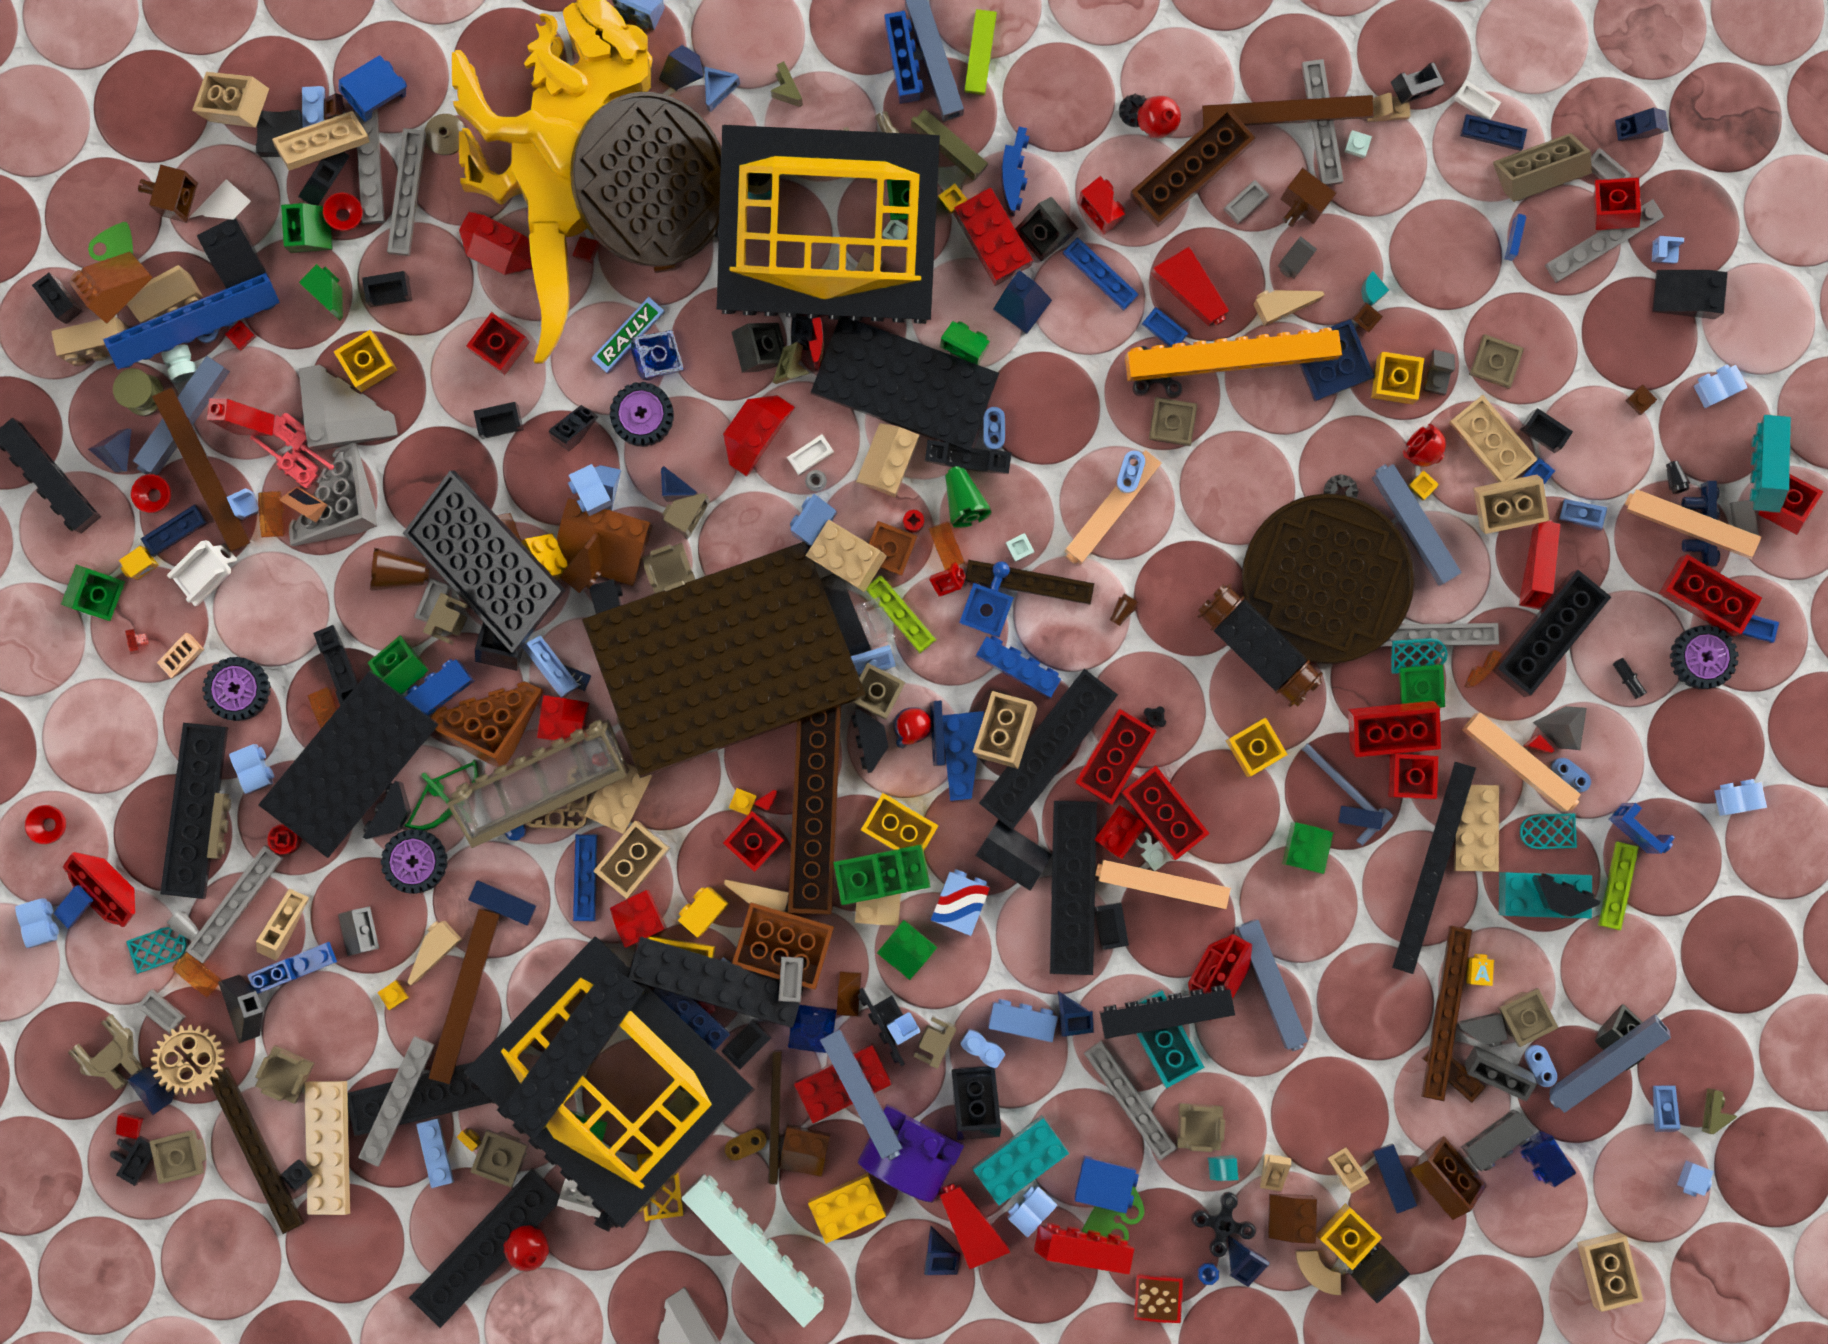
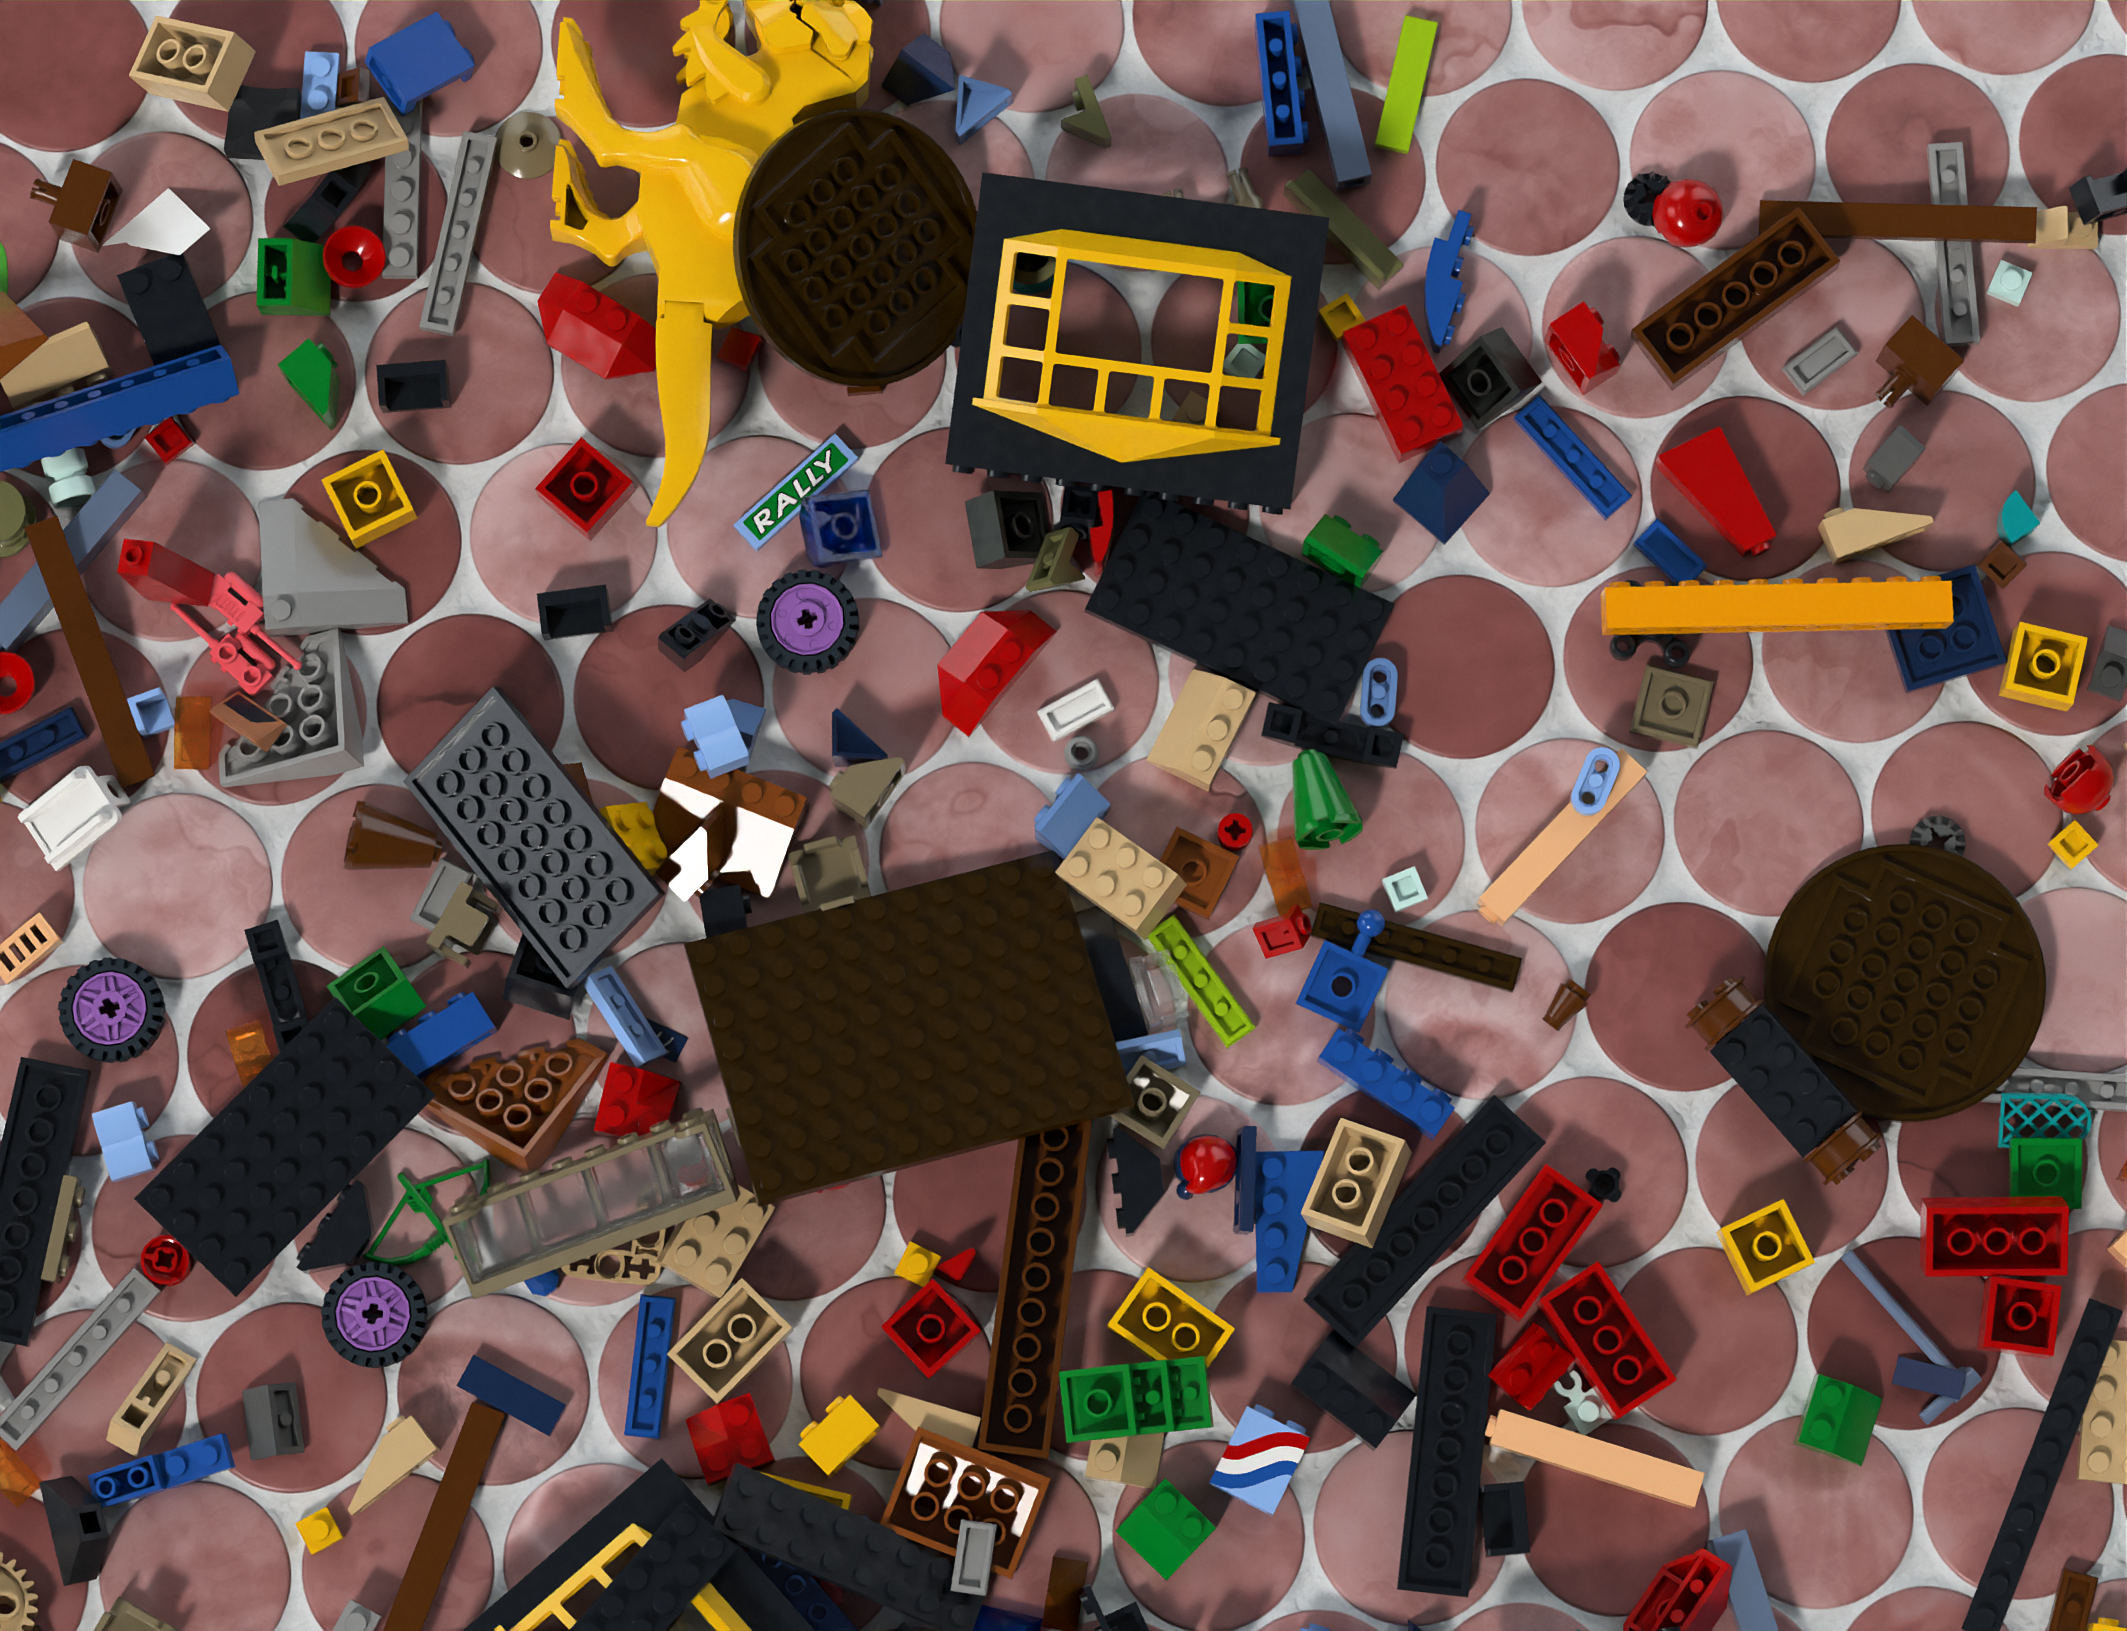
camera: 10 degrees right, 5 degrees down
(1415, 524) = (2055, 906): sand blue brick -> none

